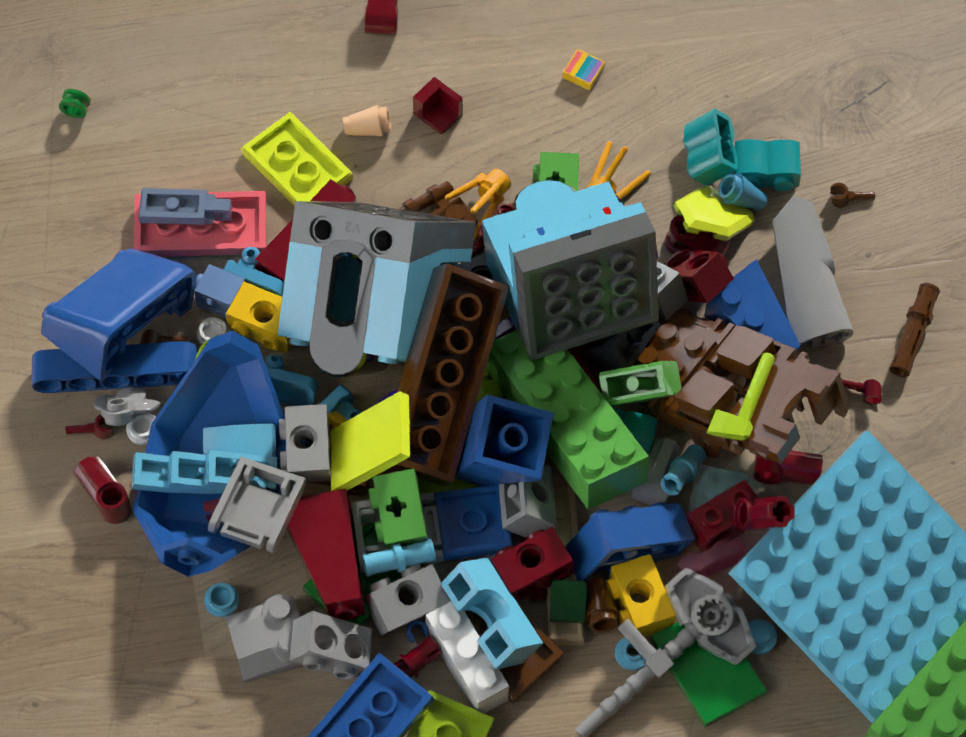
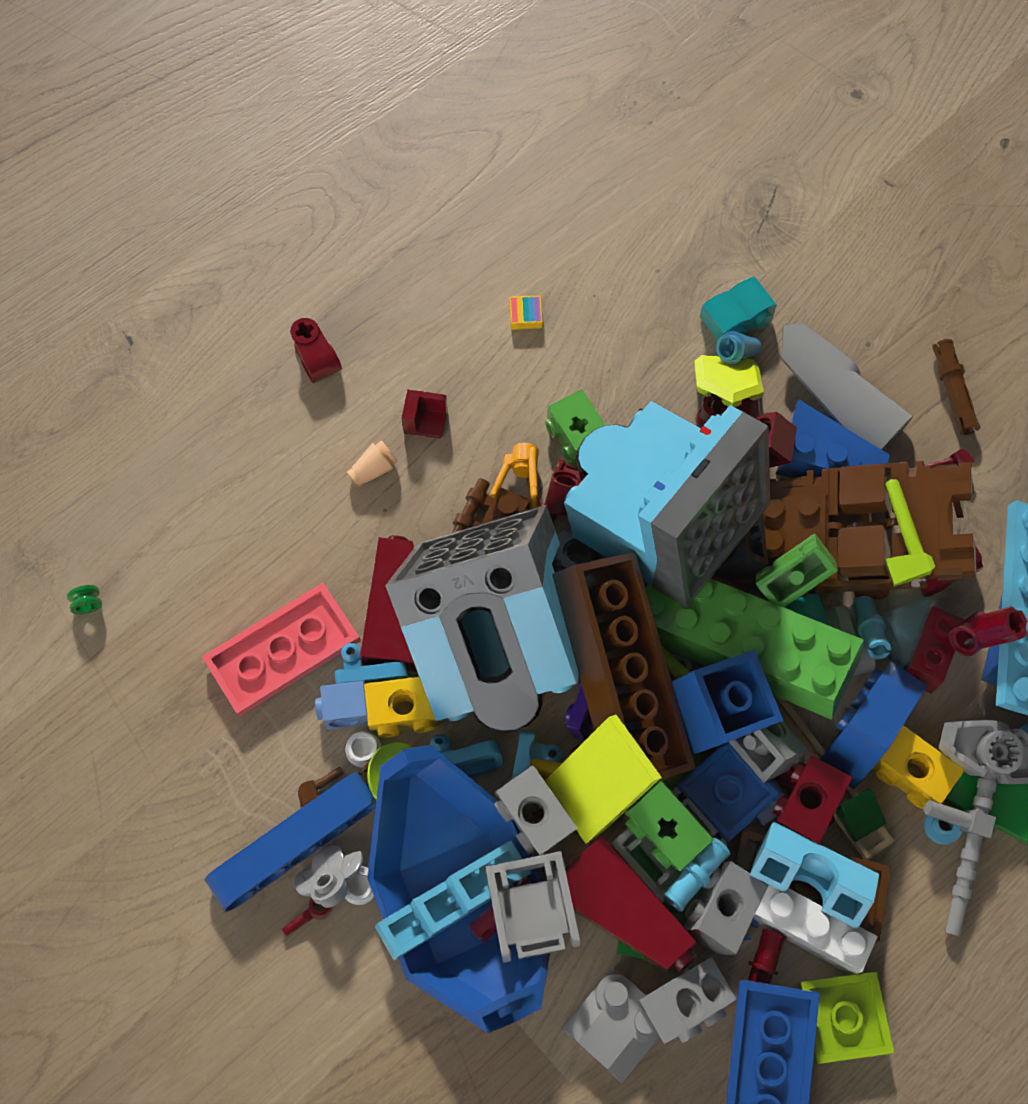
camera: 30 degrees left, 5 degrees up
(103, 488) = (359, 972): dark red piece -> none
(115, 305) = (260, 784): blue windscreen -> none
(182, 207) = (257, 644): sand blue hinge -> none
(221, 600) = (551, 1015): medium azure plate -> none
(245, 438) = (463, 846): medium azure slope -> none
(295, 159) = (330, 538): neon yellow tile -> none
(600, 609) = (891, 801): reddish brown cone -> none
(607, 177) = (618, 409): light orange plant -> none
(710, 147) = (684, 322): teal brick -> none
(718, 558) = (939, 709): clear pink plate -> none
(841, 201) = (818, 300): reddish brown hand -> none

